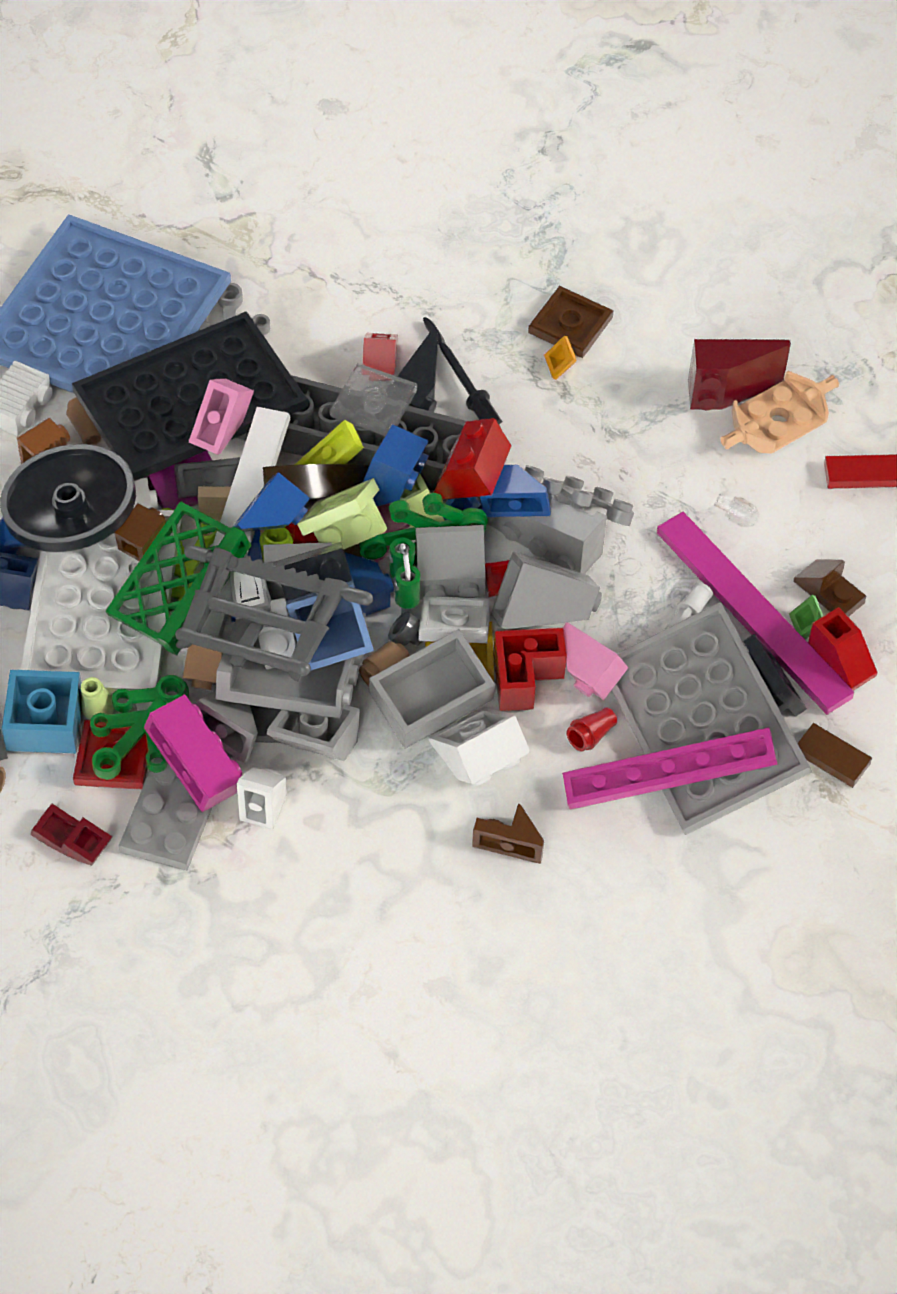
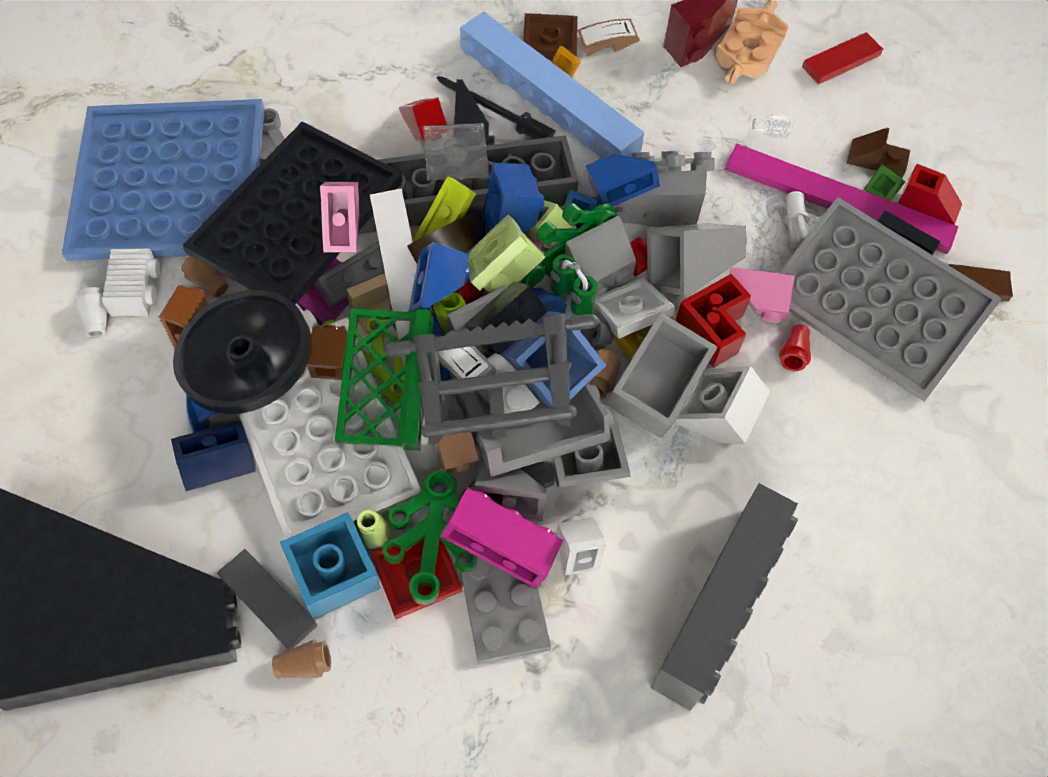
camera: 30 degrees left, 5 degrees up
(69, 836) = (426, 674): dark red slope -> none
(355, 892) = (727, 599): none -> dark grey brick
(474, 461) = (576, 166): red slope -> none
(516, 841) = (808, 471): reddish brown slope -> none
(525, 375) = (549, 88): none -> light blue brick
(638, 344) = (616, 32): none -> slope
(669, 768) = (891, 352): dark pink plate -> none

